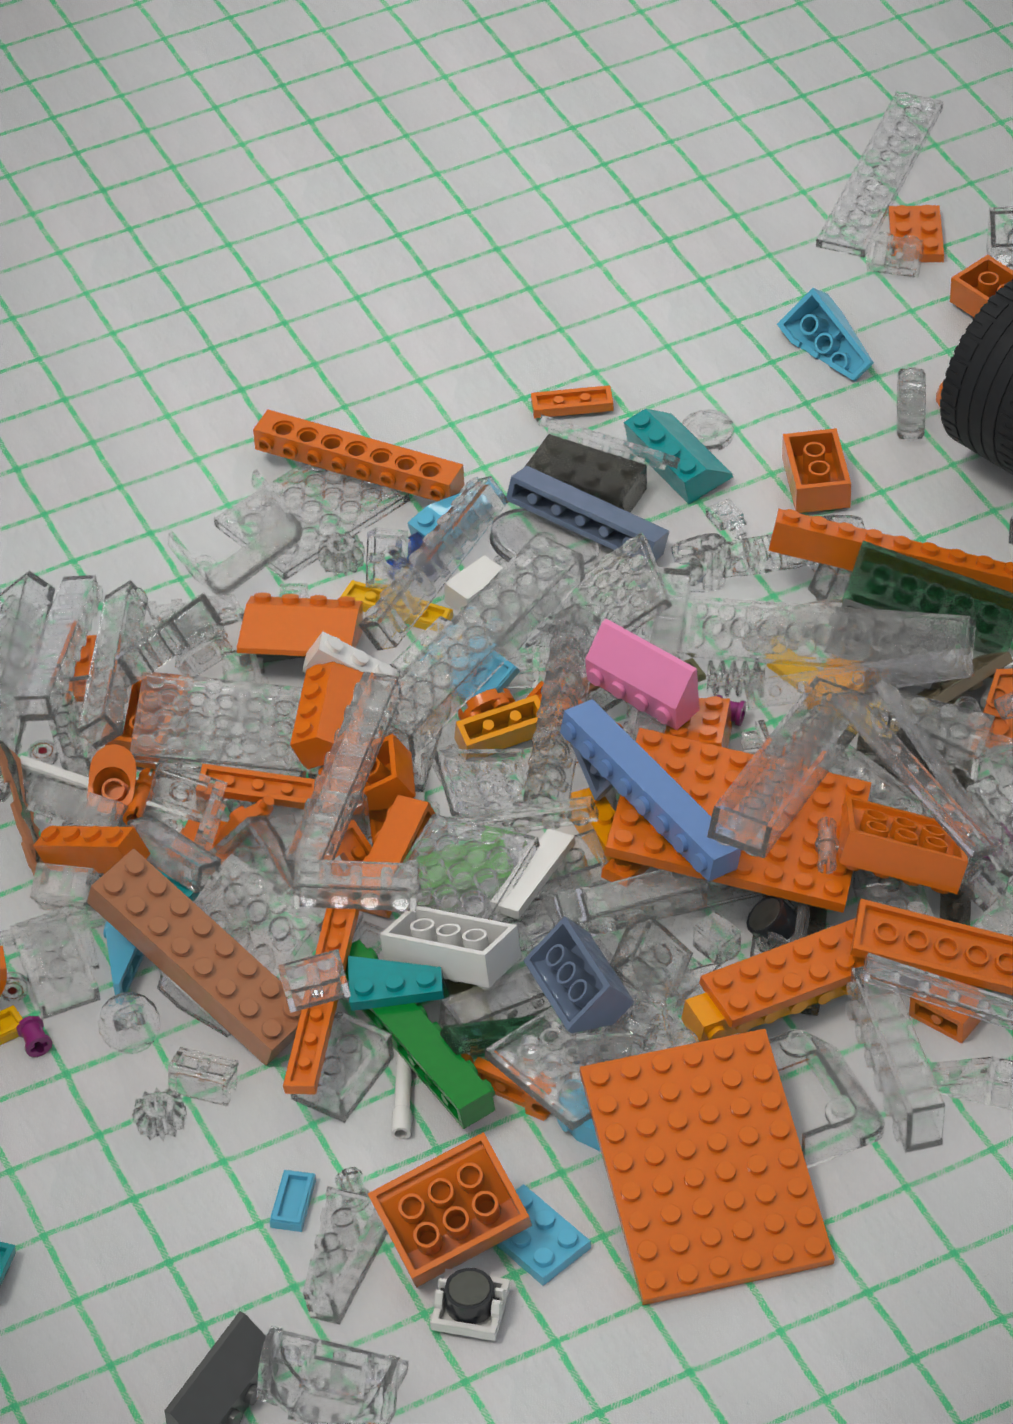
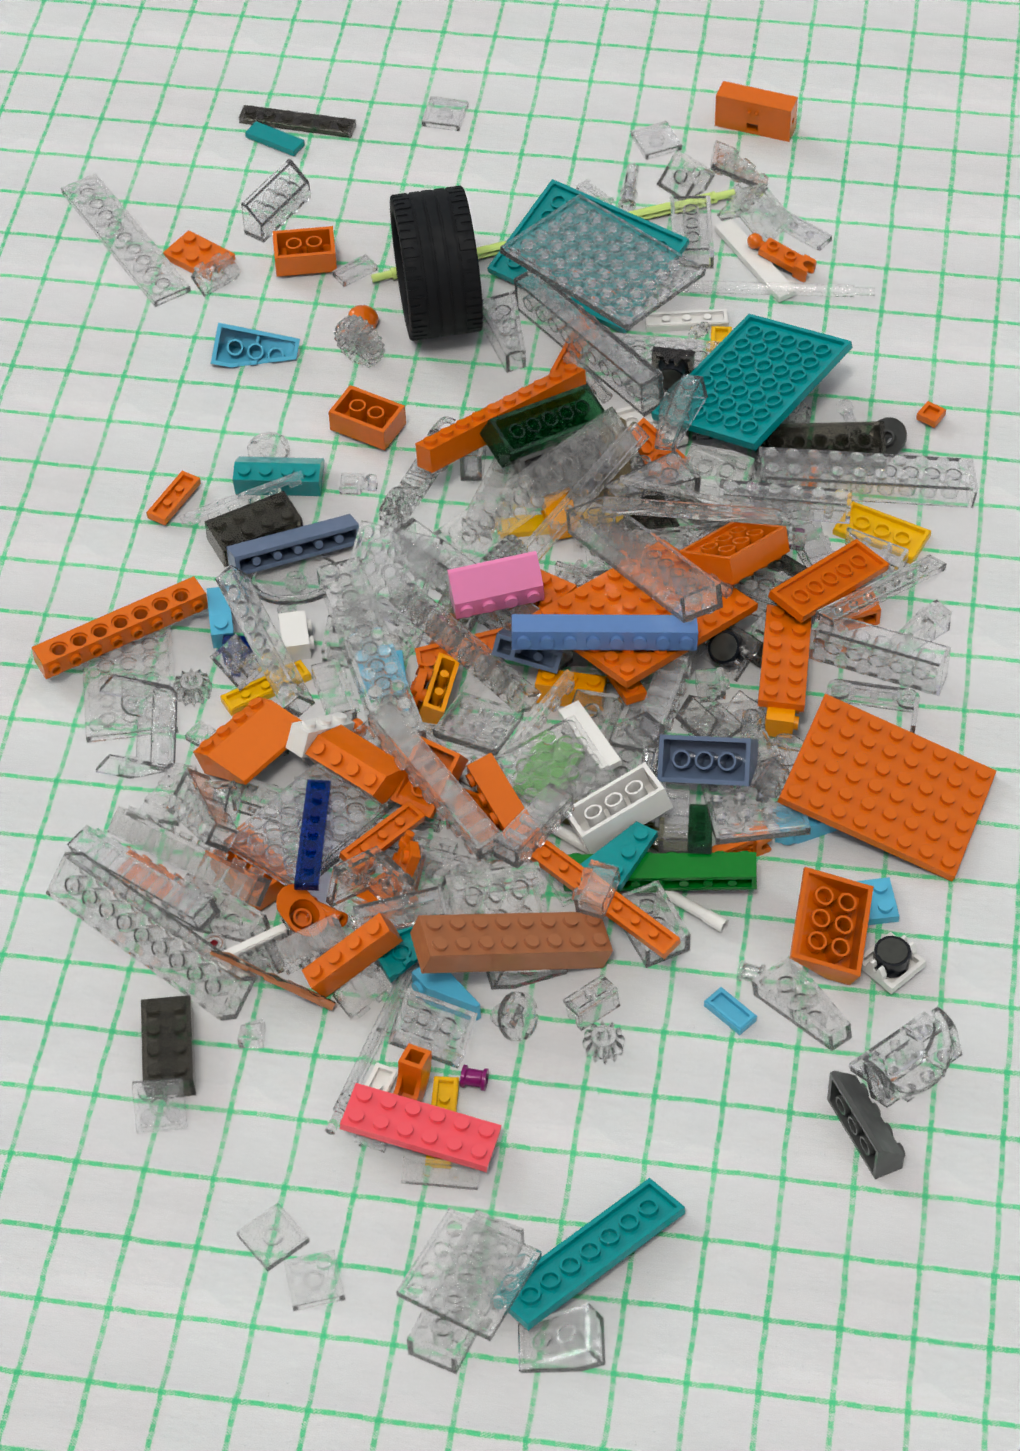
camera: 55 degrees left, 5 degrees up
(202, 729) = (312, 835): none -> clear blue tile

